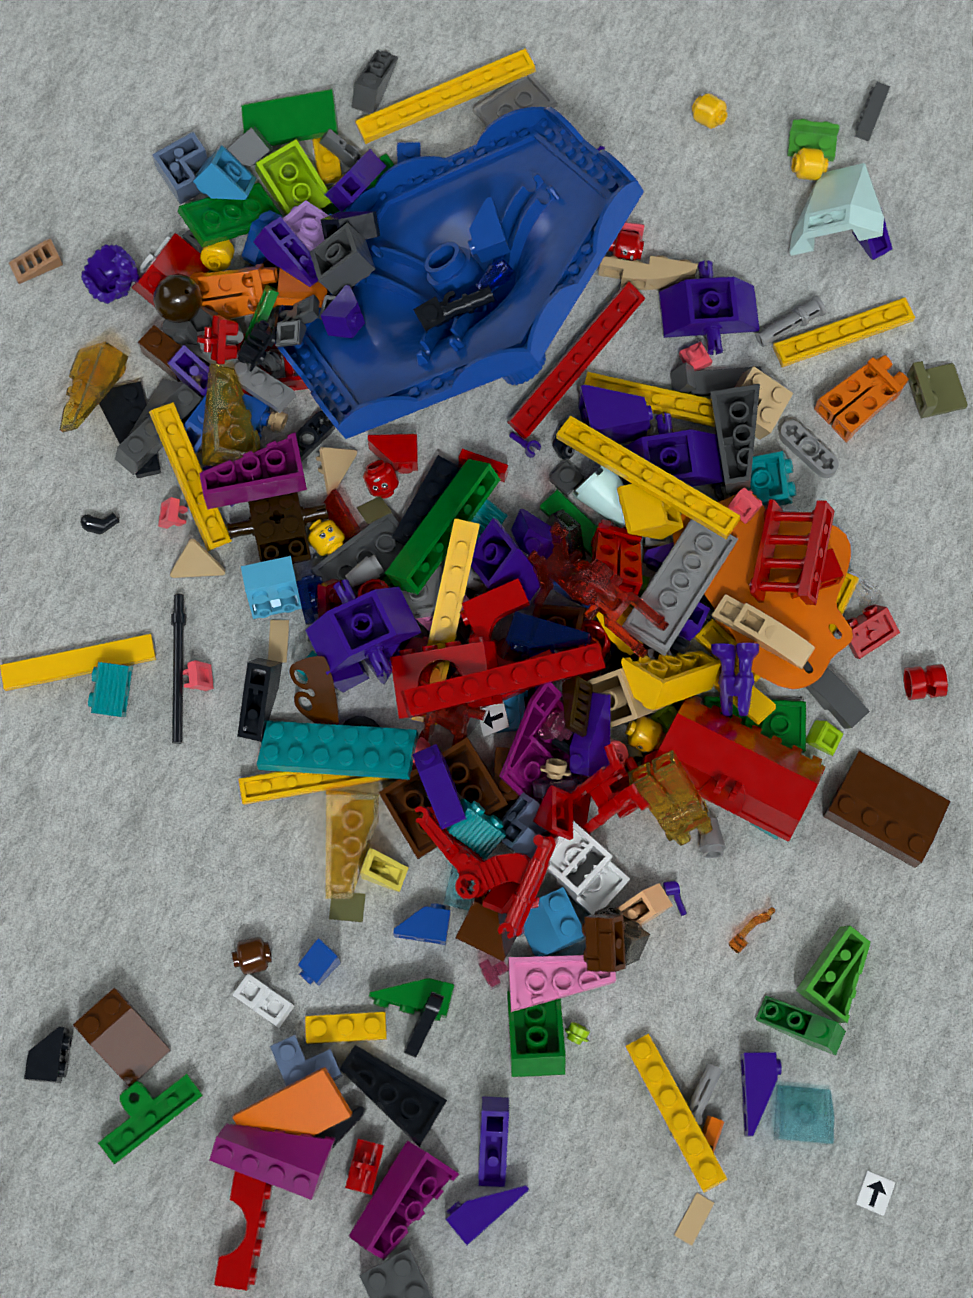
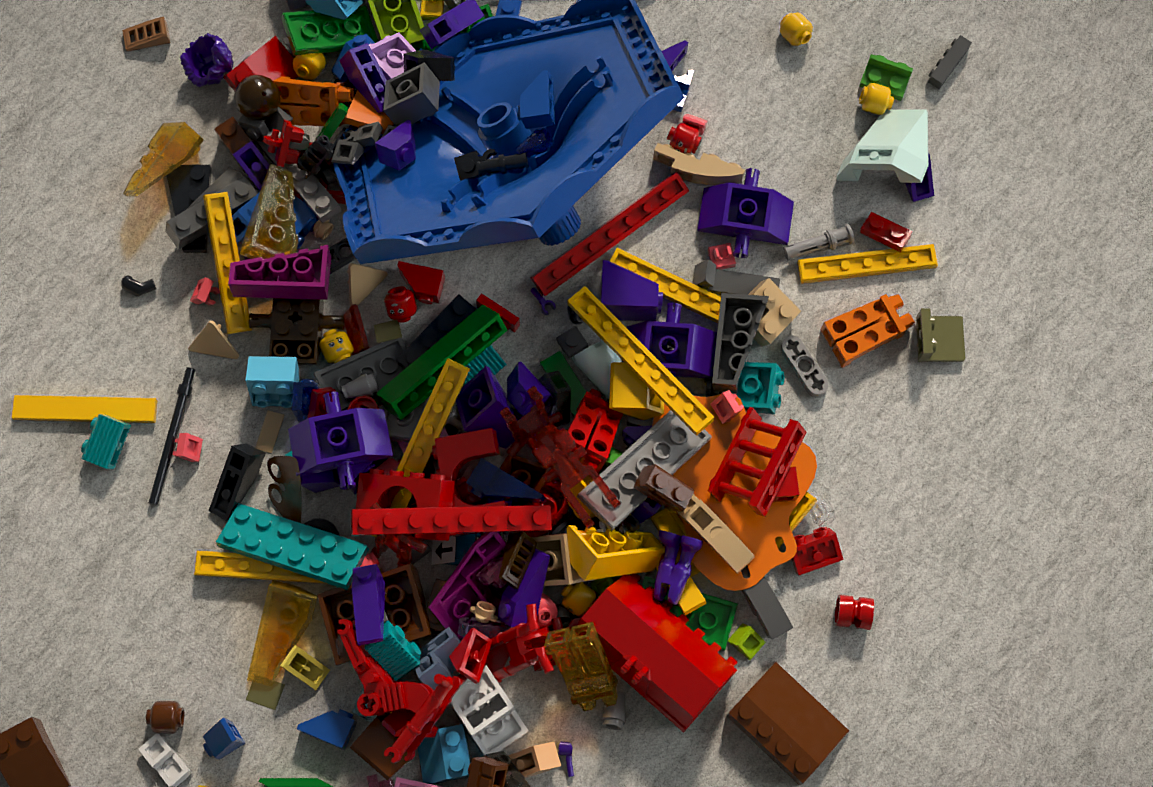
camera: 15 degrees right, 0 degrees up
(707, 599) = (663, 488): none -> reddish brown brick
(854, 295) = (885, 231): none -> red plate

